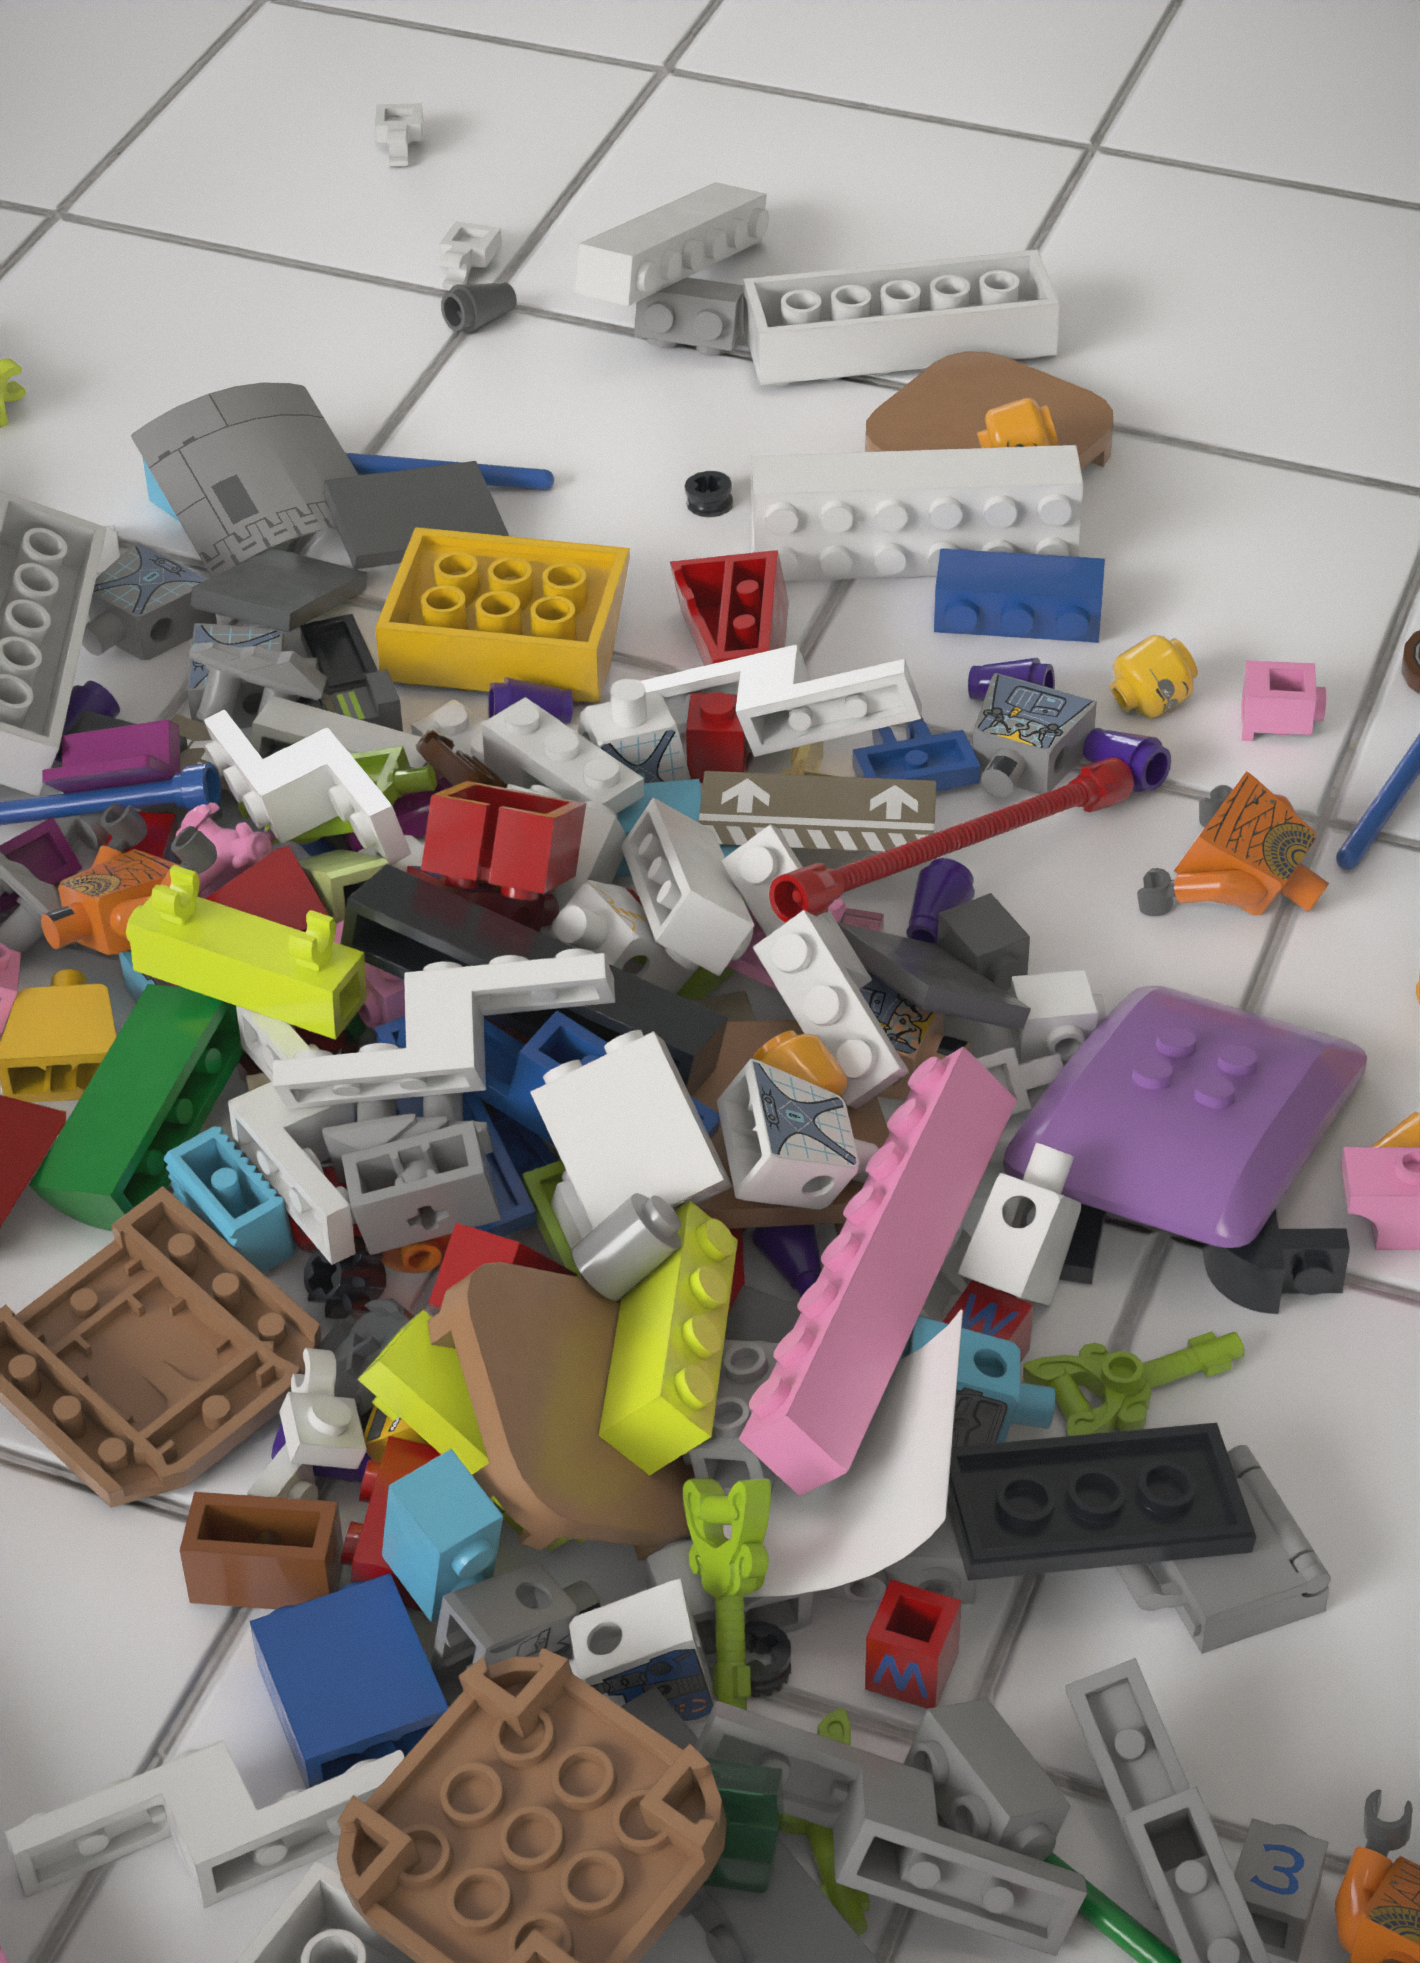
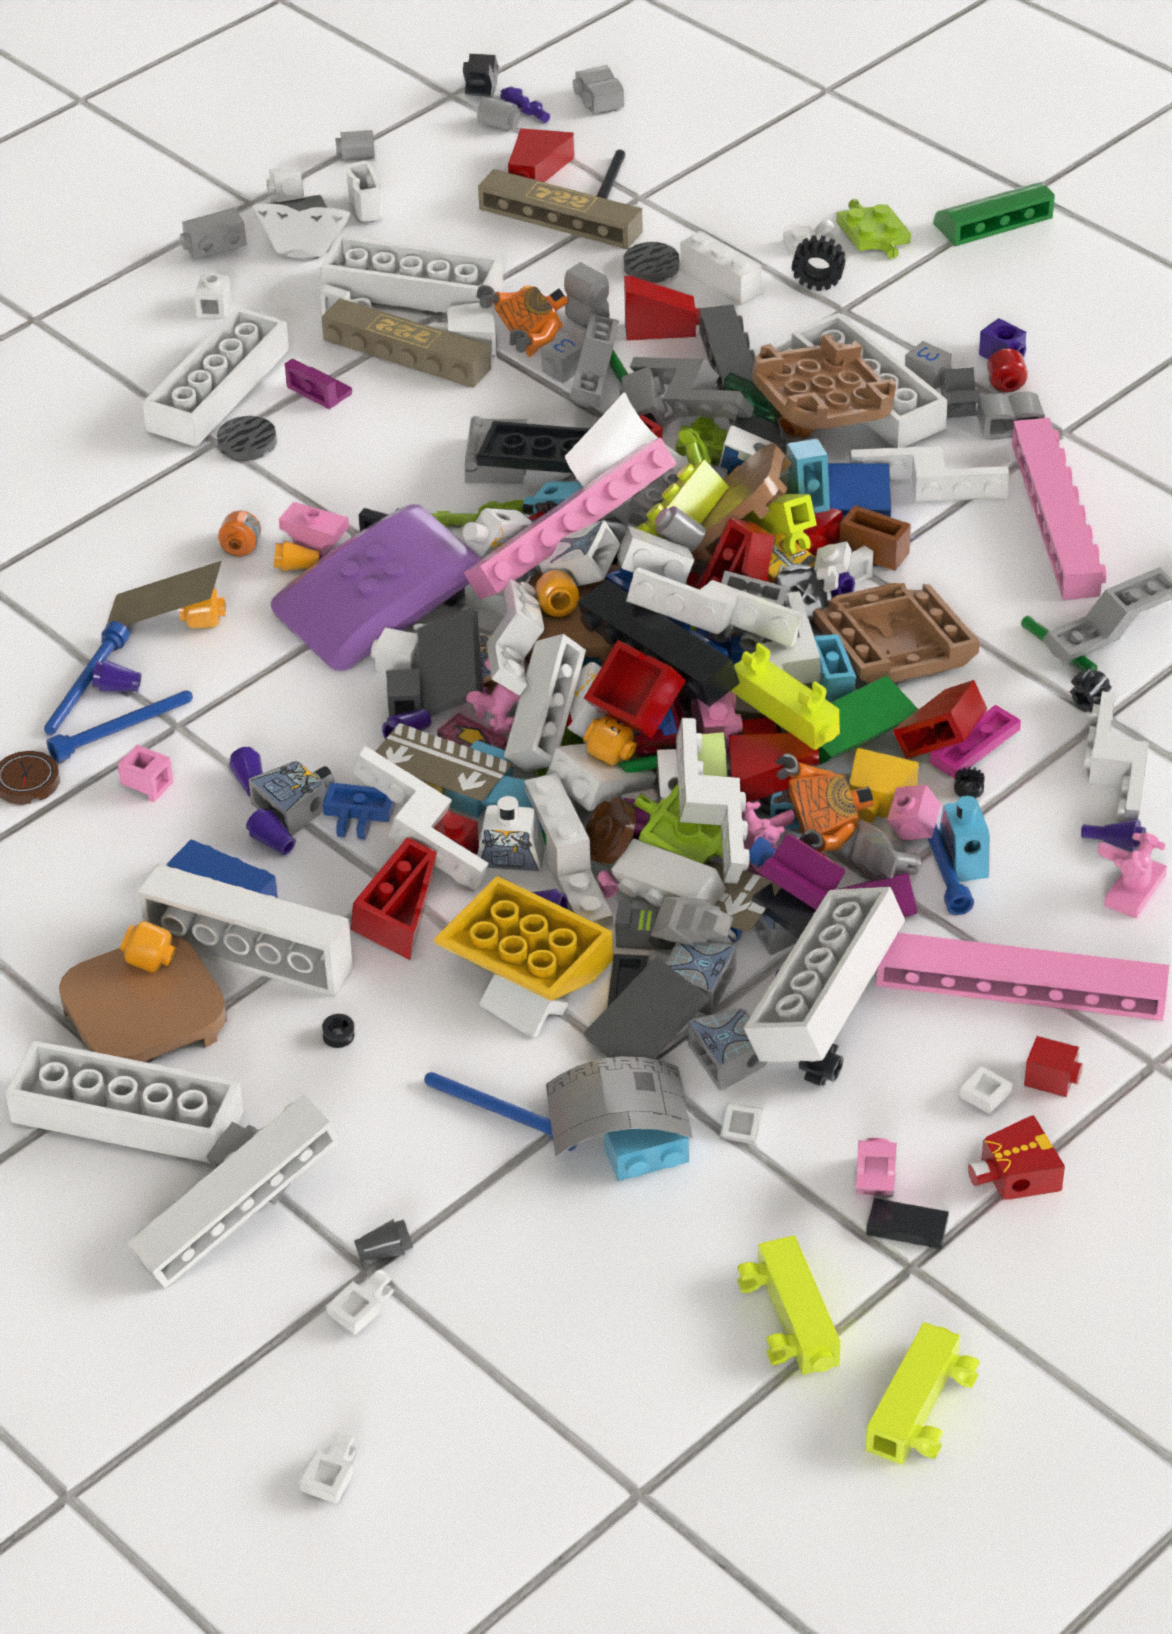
camera: 155 degrees left, 0 degrees up
(383, 509) = (533, 1054): dark grey tile -> none
(816, 888) = (501, 636): red hose -> none
(1153, 676) = (196, 806): yellow head -> none
(1241, 856) = (243, 690): orange torso -> none

